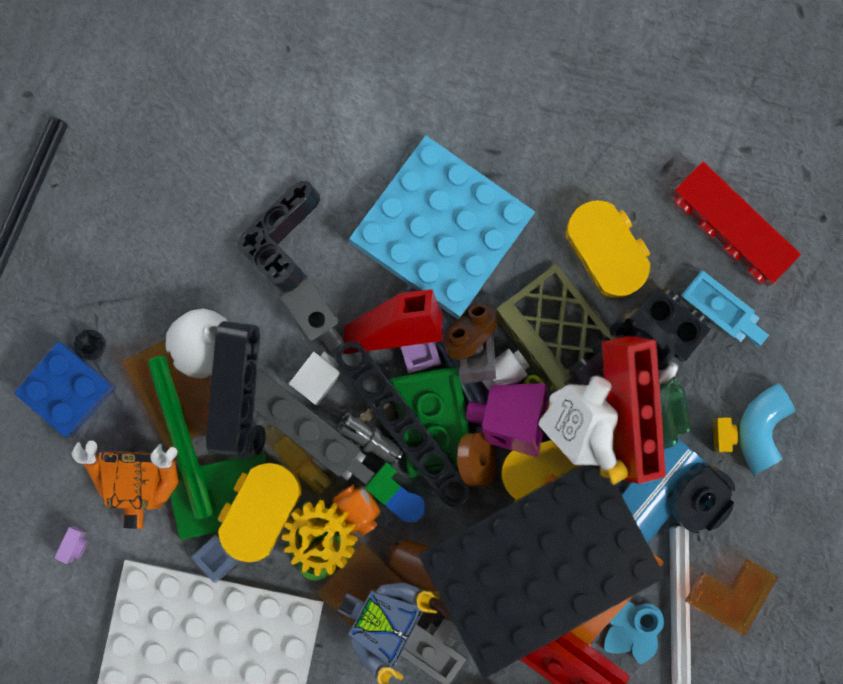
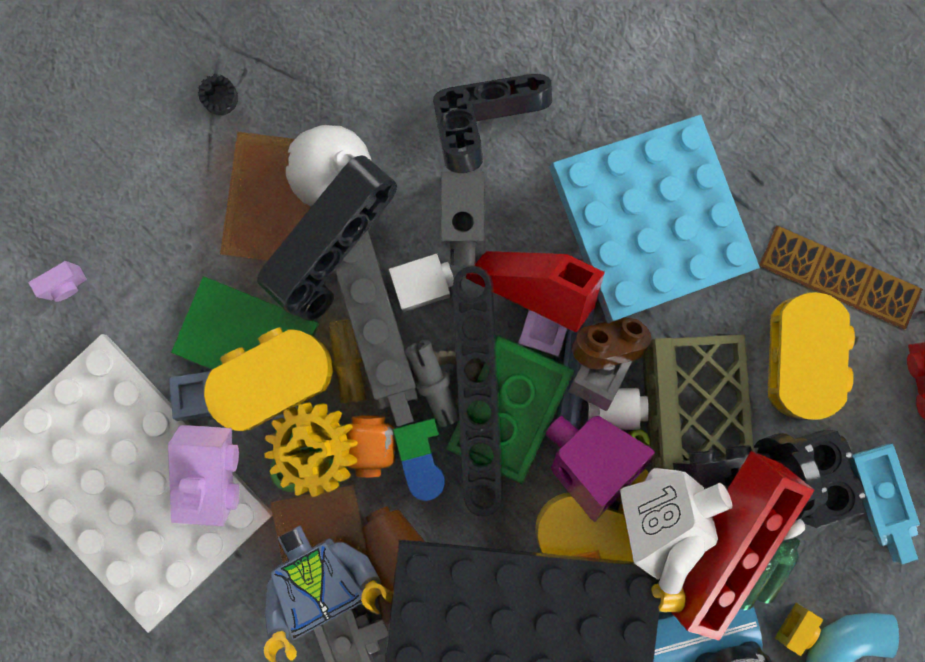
camera: 30 degrees right, 0 degrees up
(64, 390) = (159, 121): blue brick -> none
(130, 479) = (161, 255): orange torso -> none
(180, 437) = (241, 248): green axle -> none
(260, 603) = (202, 475): none -> lavender brick
(476, 460) = (527, 480): dark orange piece -> none
(595, 179) = (841, 277): none -> sticker

